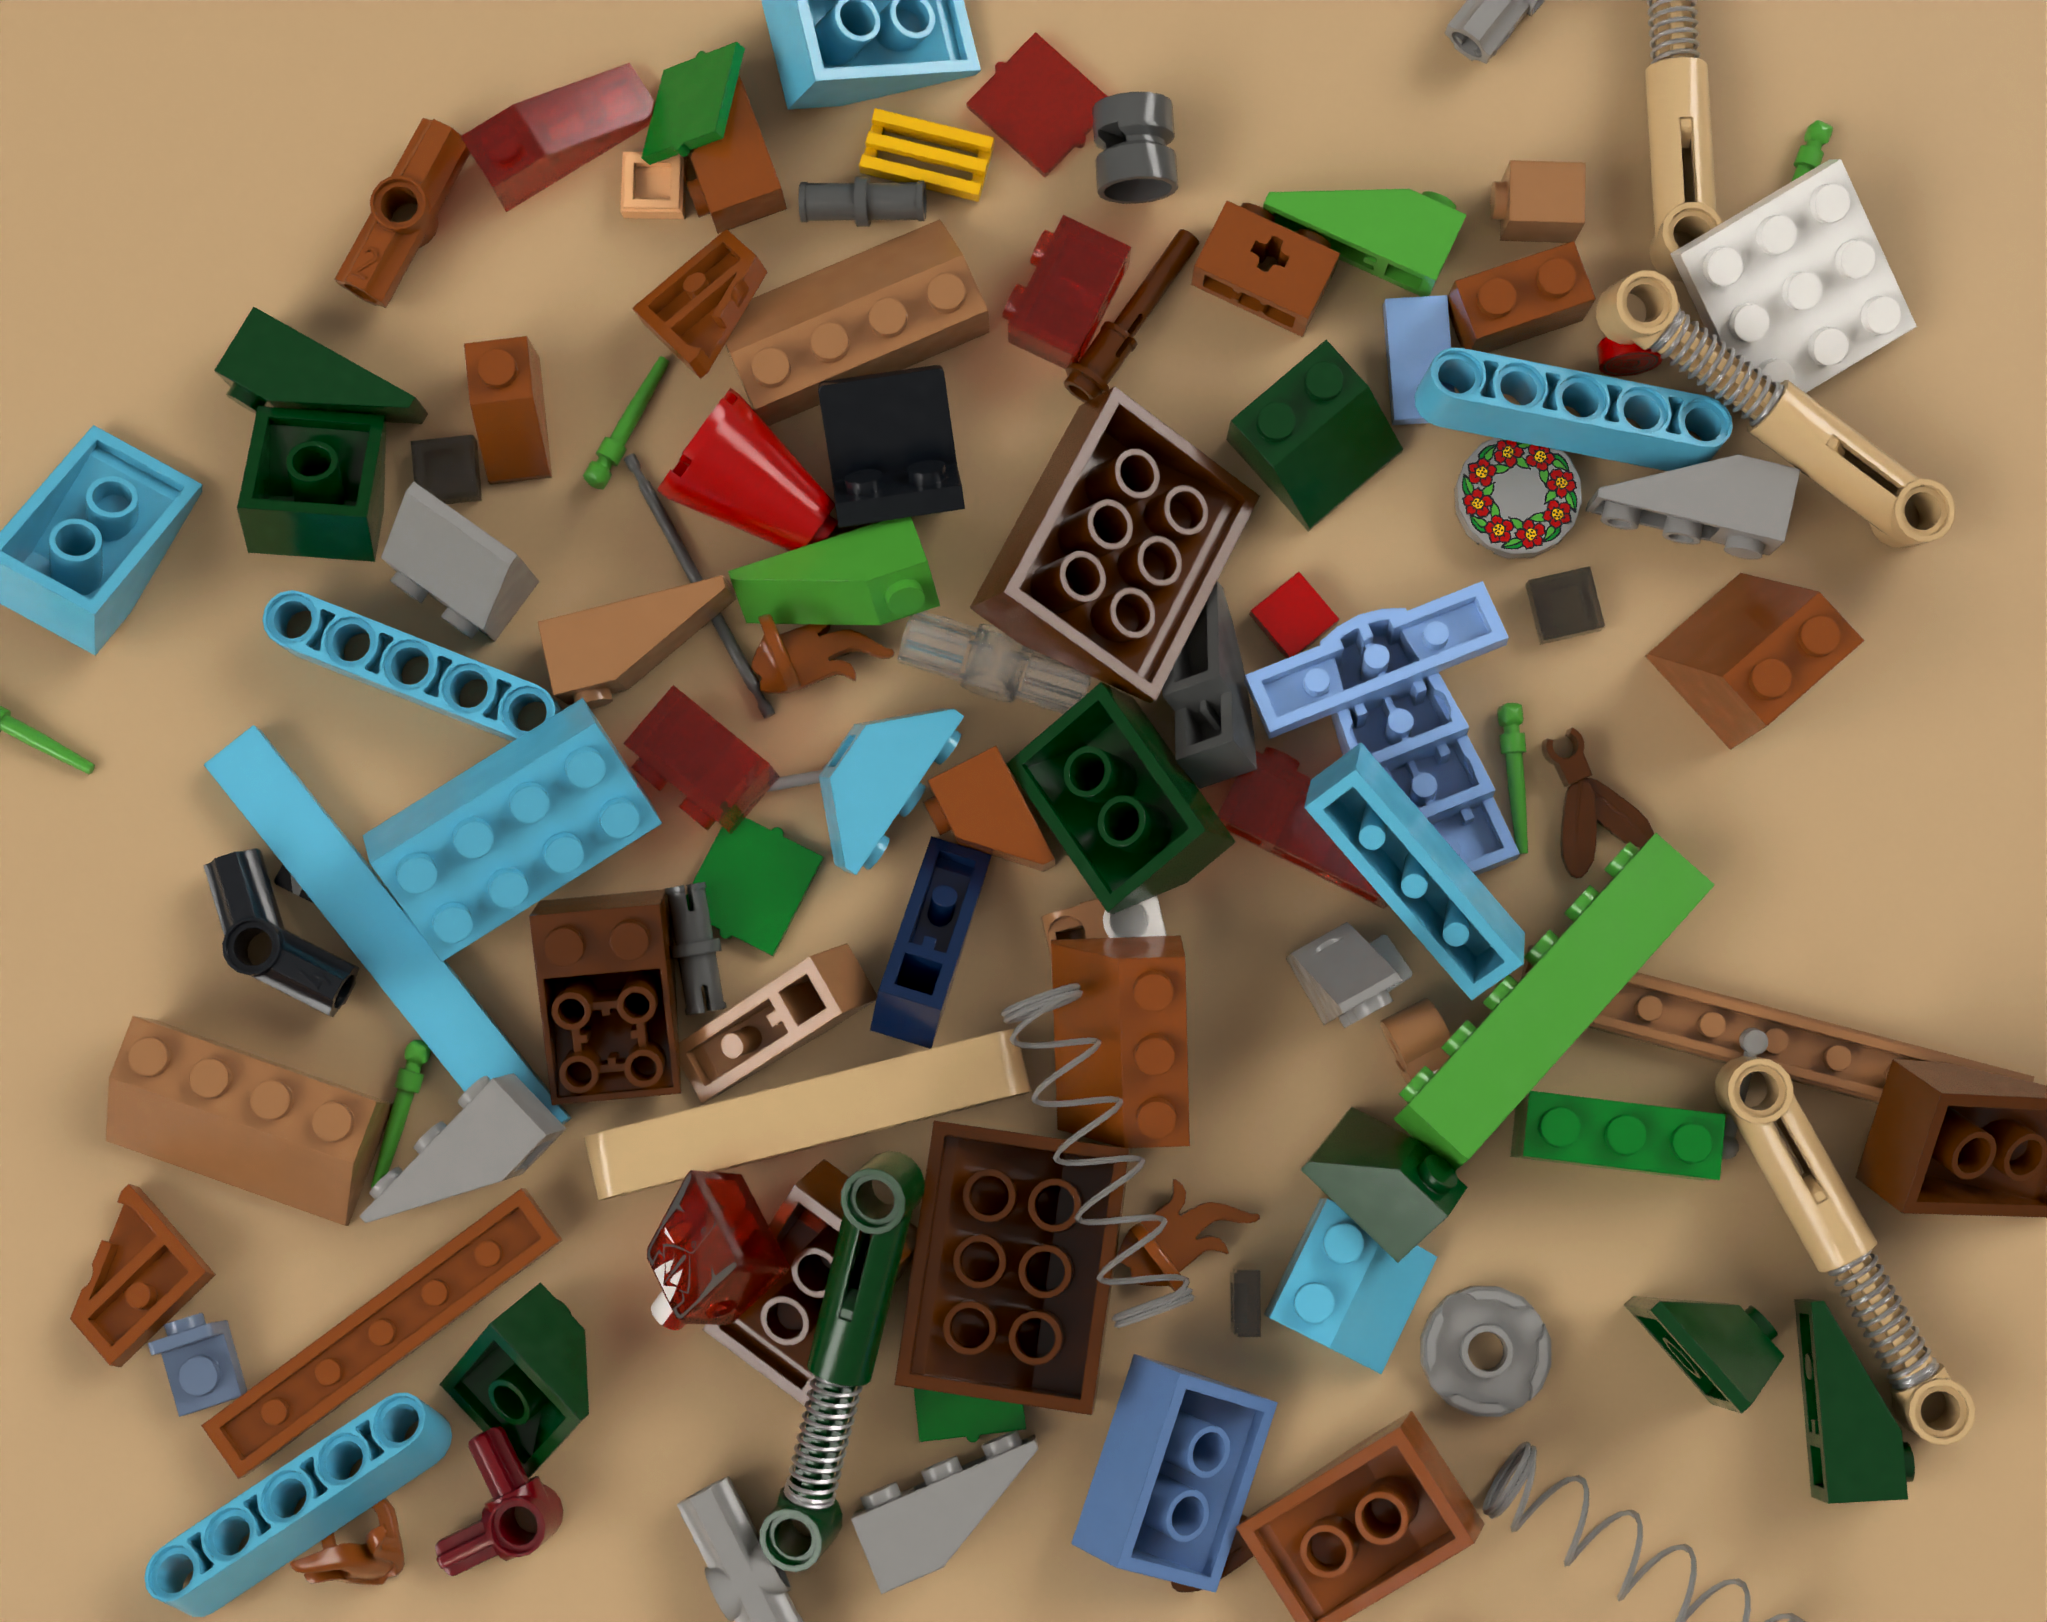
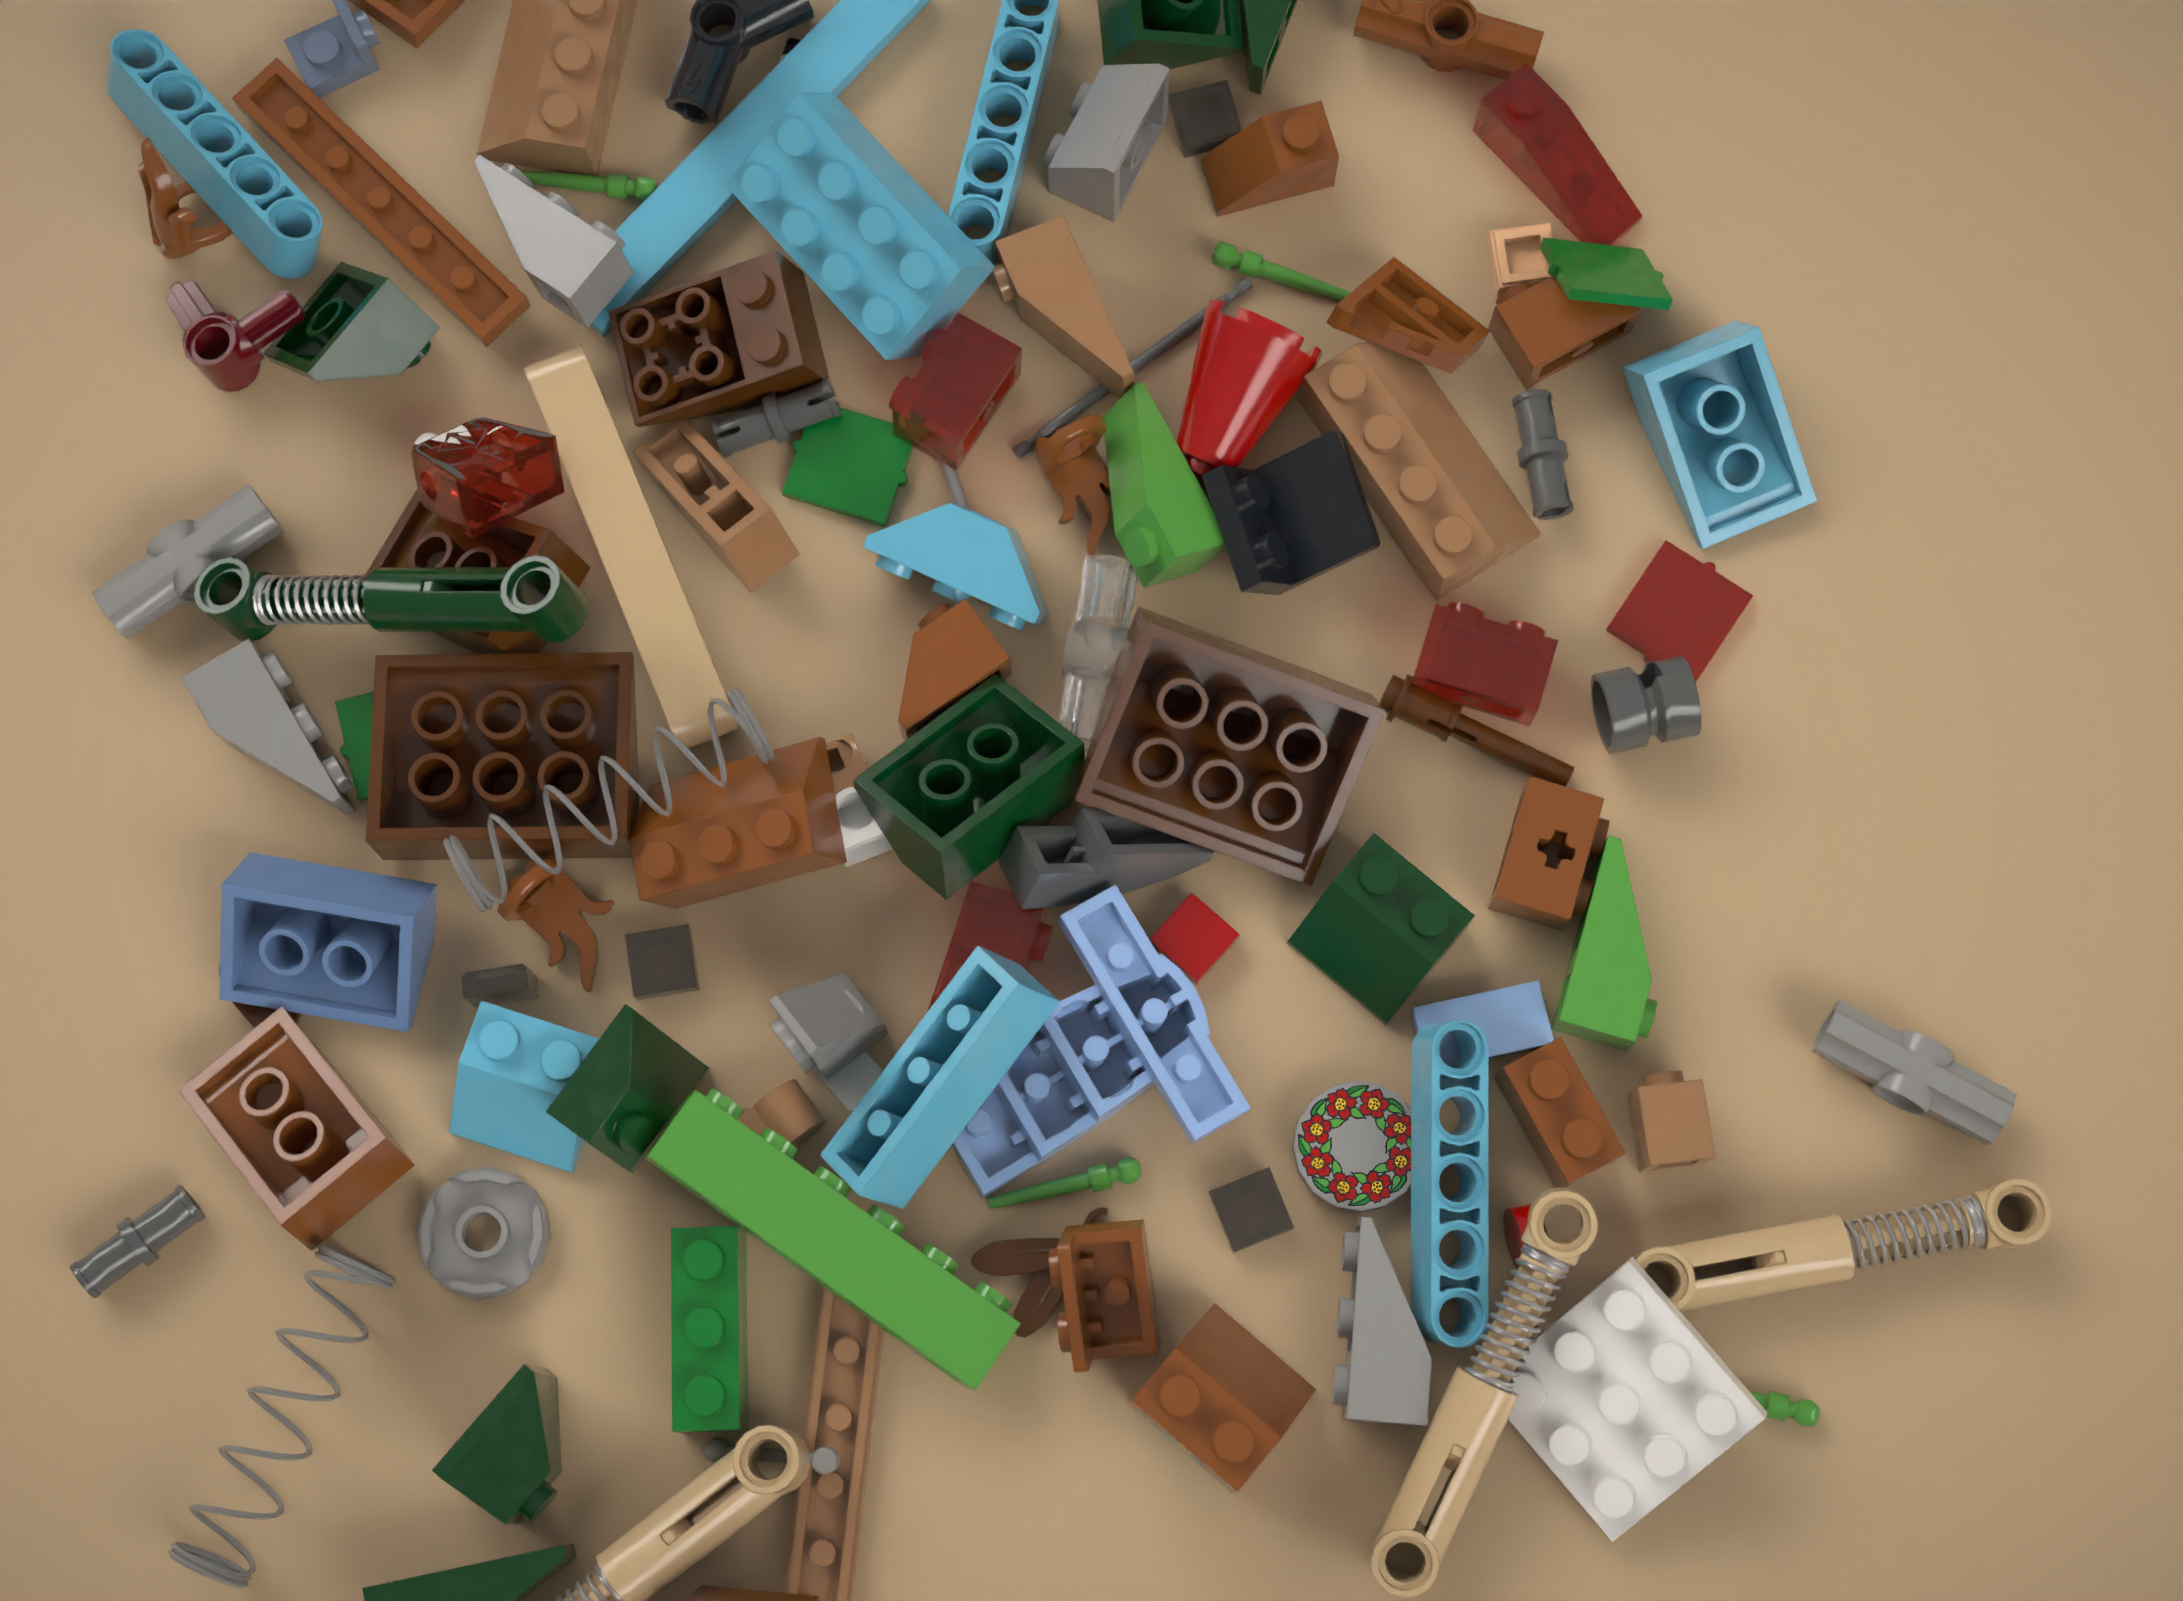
camera: 80 degrees right, 5 degrees down
(930, 943) = (809, 631): dark blue slope -> none
(933, 133) = (1607, 461): yellow tile -> none
(1241, 1139) = (662, 962): none -> clear smoke tile
(1631, 746) = (1105, 1292): none -> dark orange bracket

